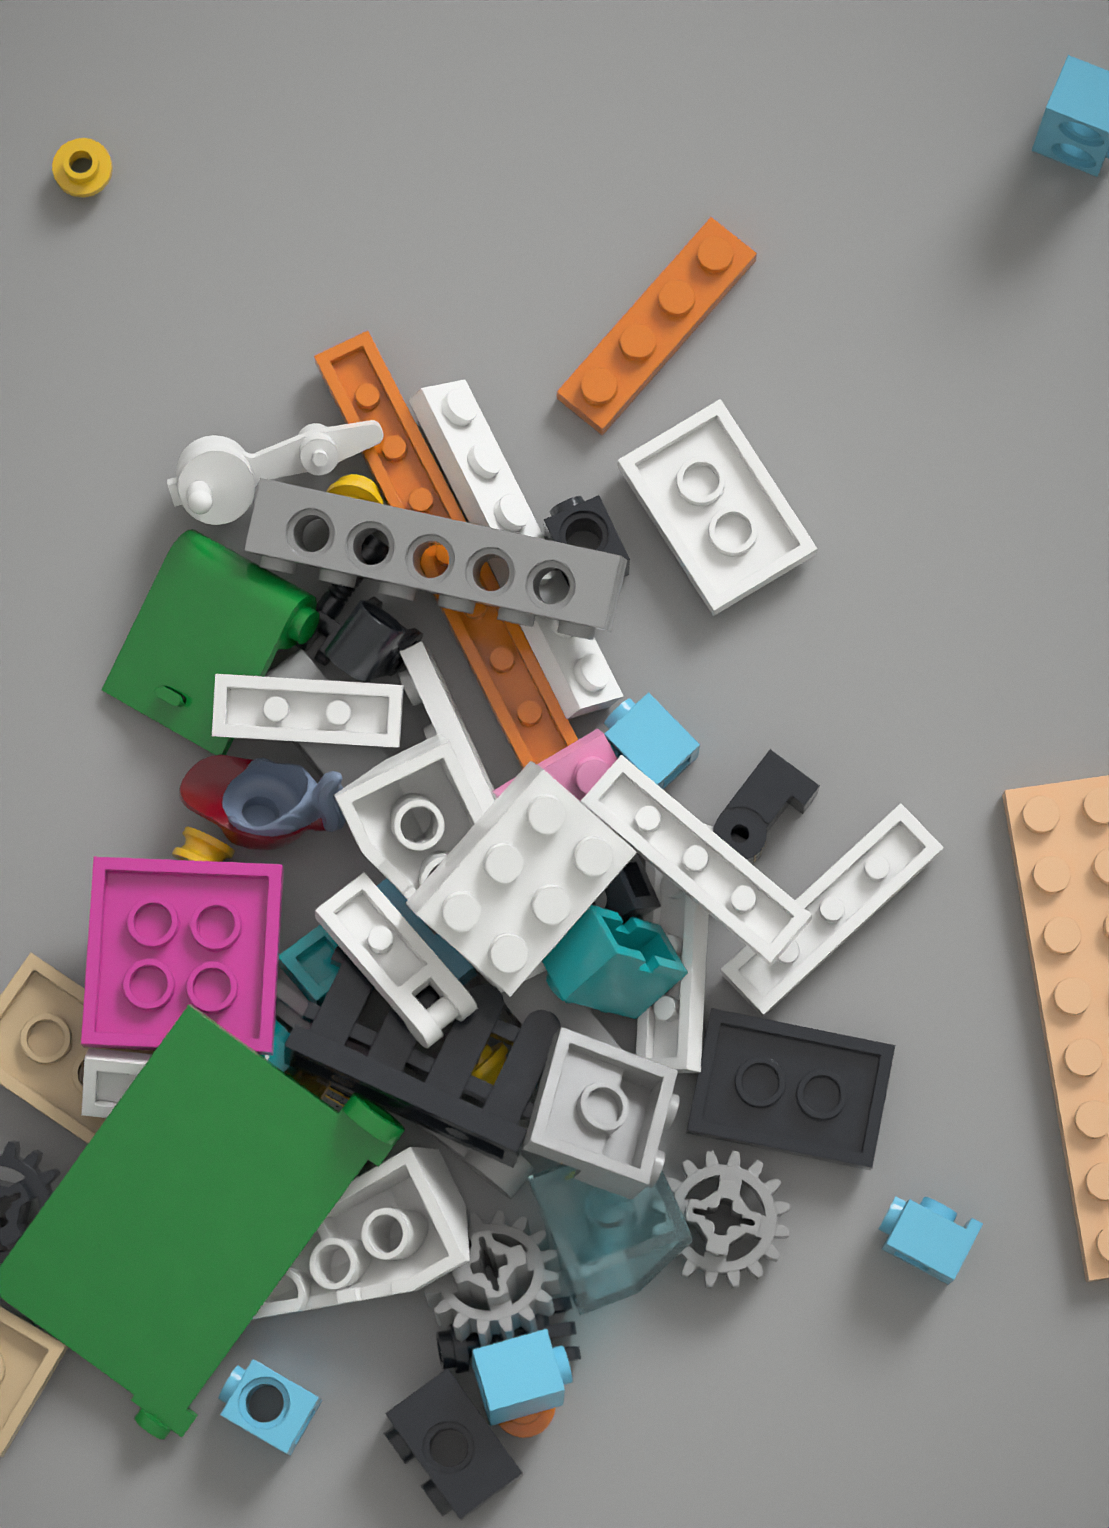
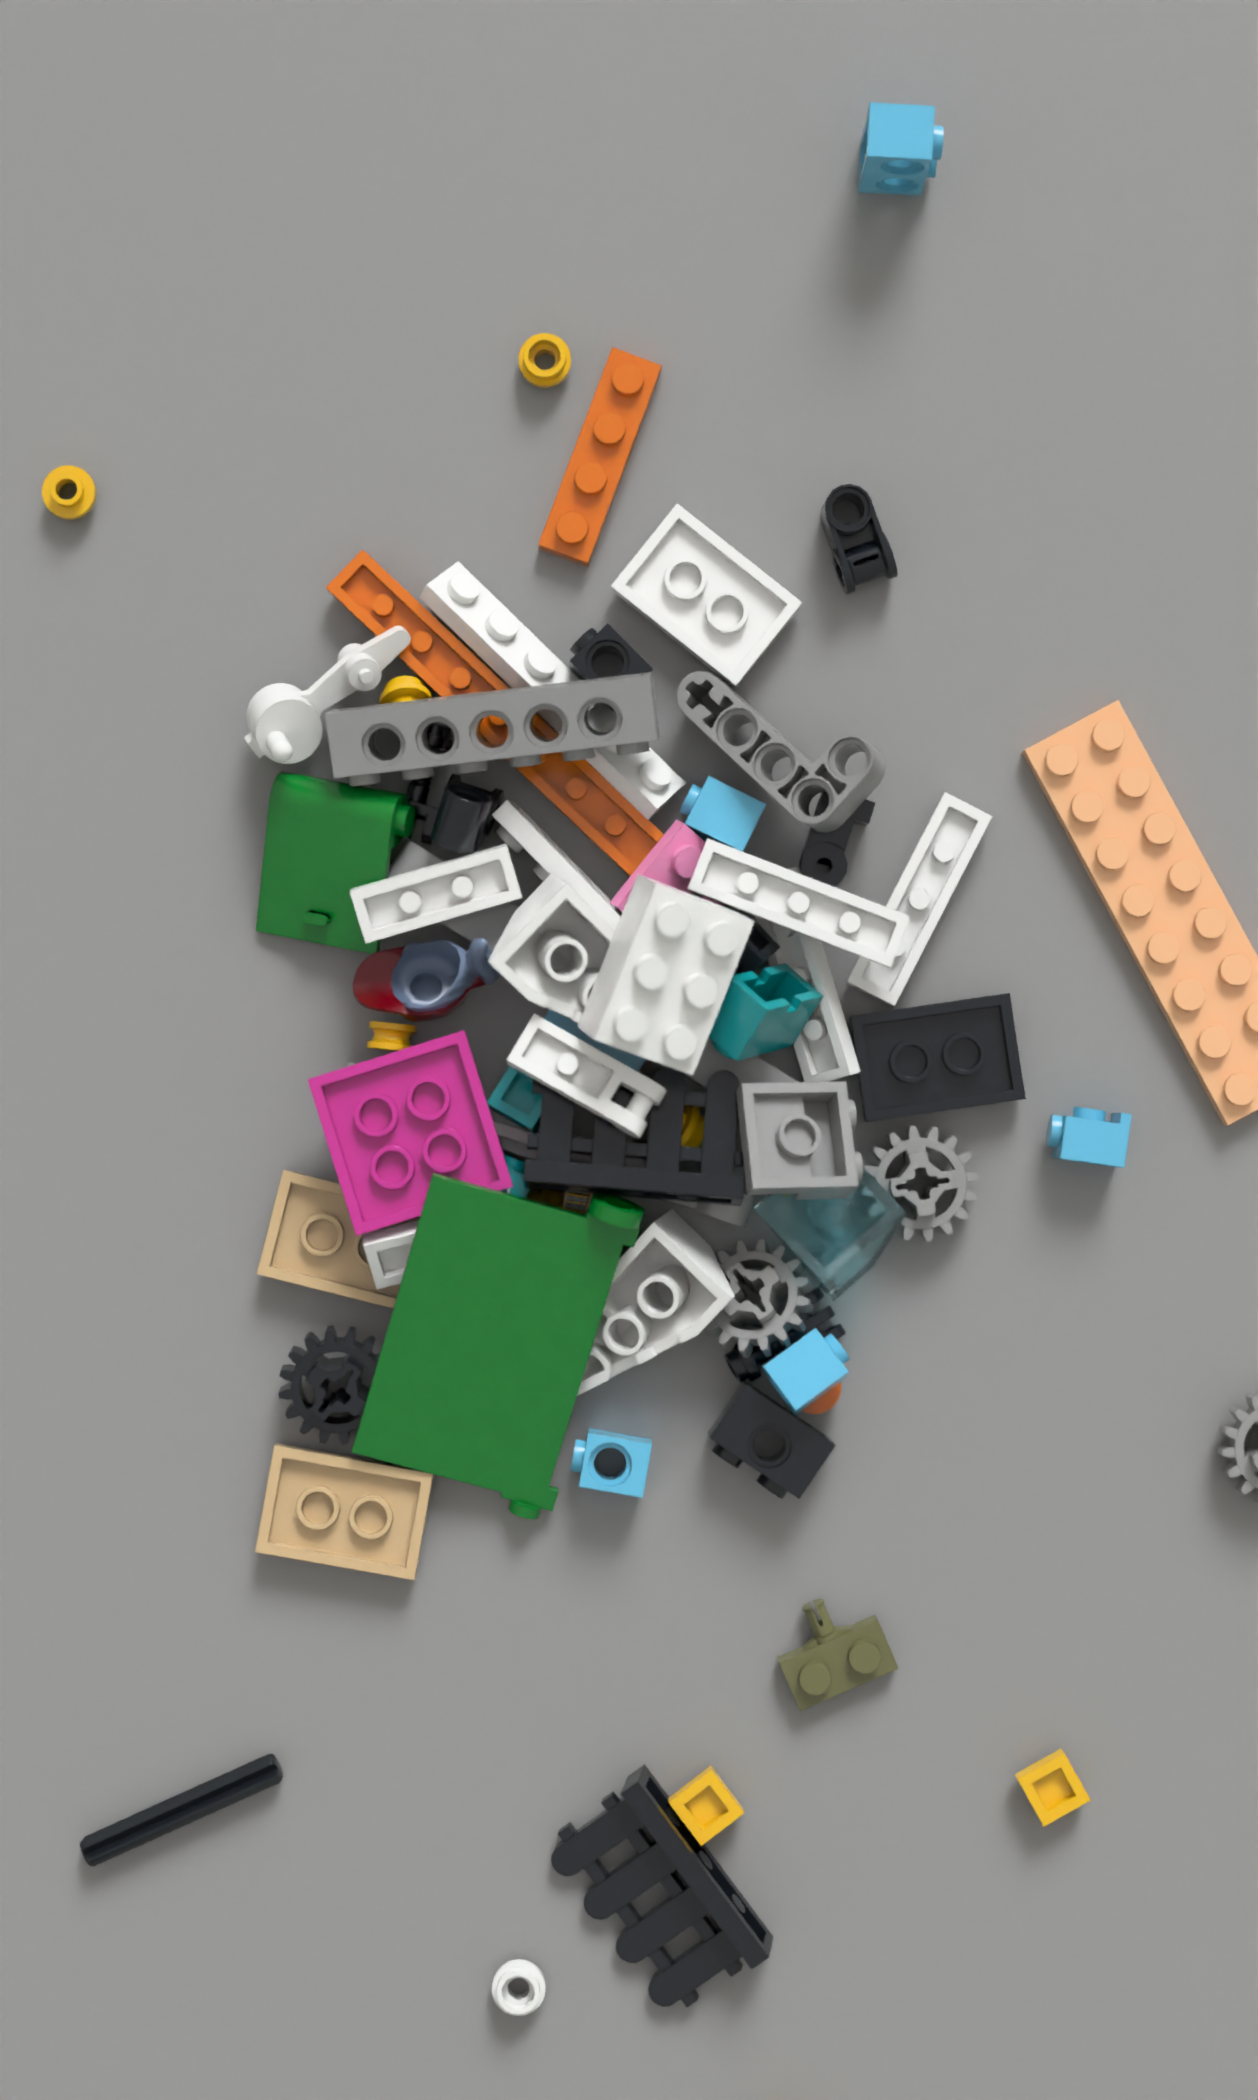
camera: 25 degrees left, 10 degrees up
(634, 190) = (544, 344): none -> yellow plate
(723, 685) = (769, 746): none -> light grey beam
(900, 513) = (857, 542): none -> black piece

